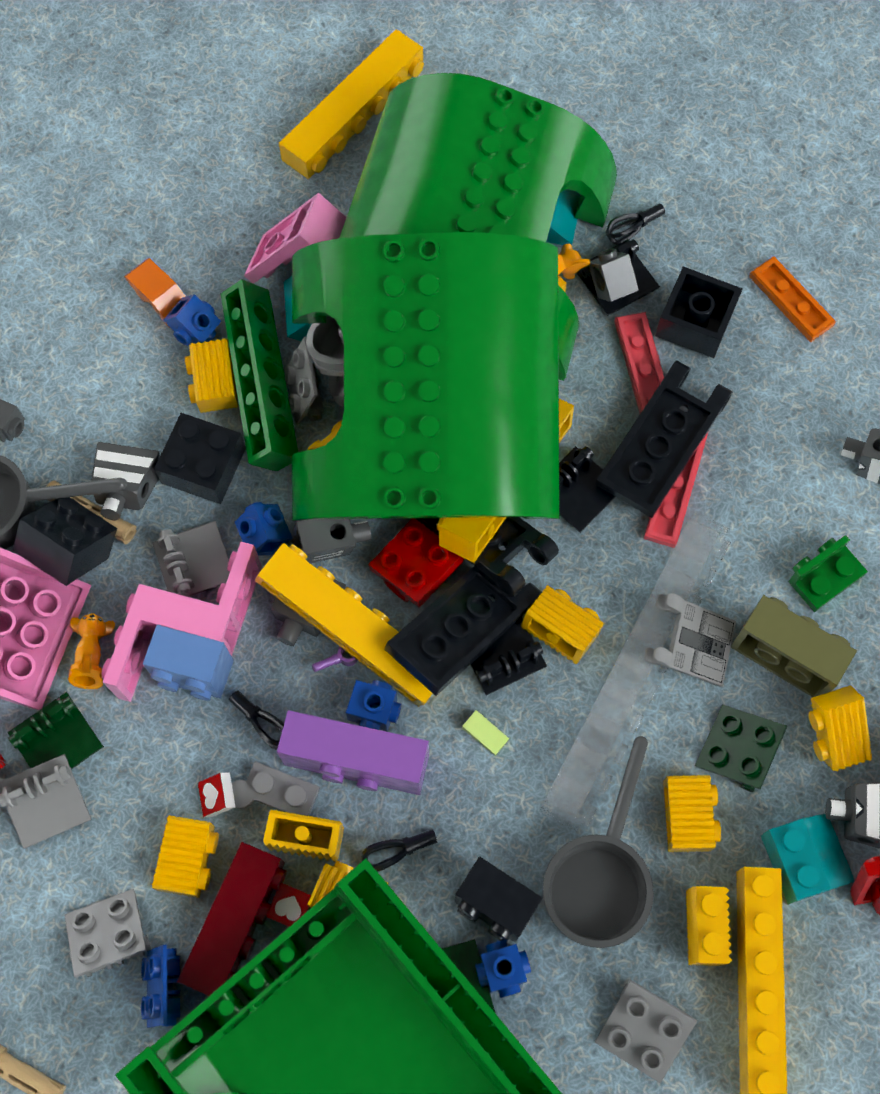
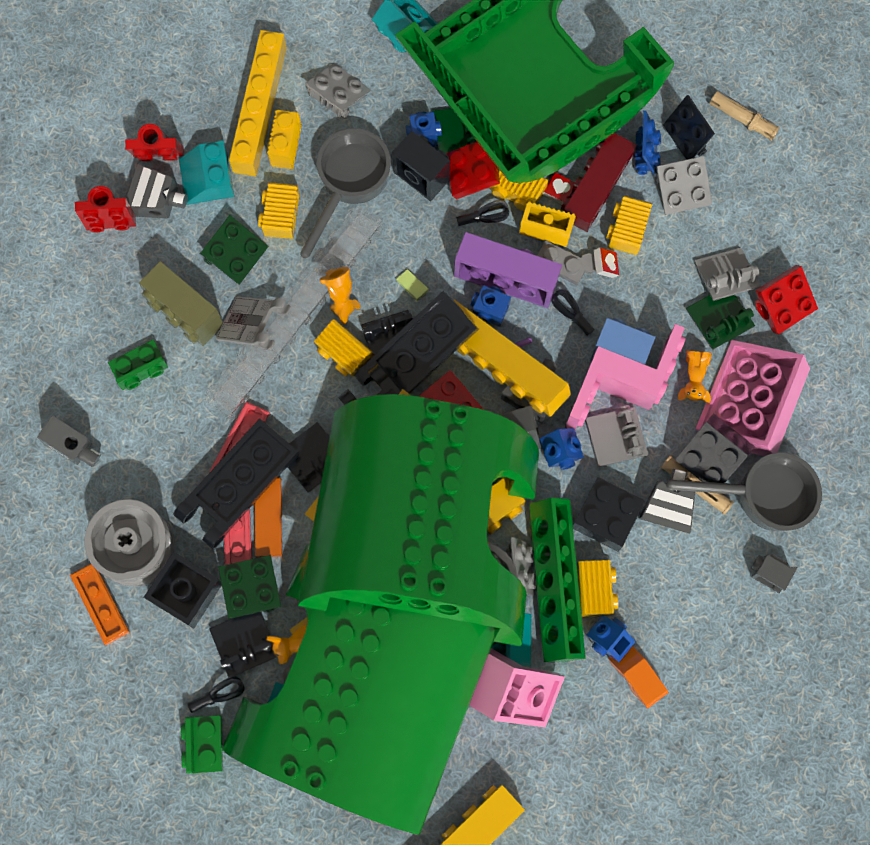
camera: 175 degrees left, 5 degrees up
(98, 1021) = (689, 129): none -> black hinge
(432, 904) = (471, 170): none -> red plate
(585, 697) = (339, 288): none -> light orange animal
(613, 275) = (248, 629): brick -> none
(614, 404) = (269, 522): none -> orange tile
(622, 327) = (249, 587): none -> dark green hinge
(639, 175) = (203, 744): none -> green bracket
(775, 349) = (110, 545): none -> light grey piece
(840, 728) = (163, 245): yellow brick -> none

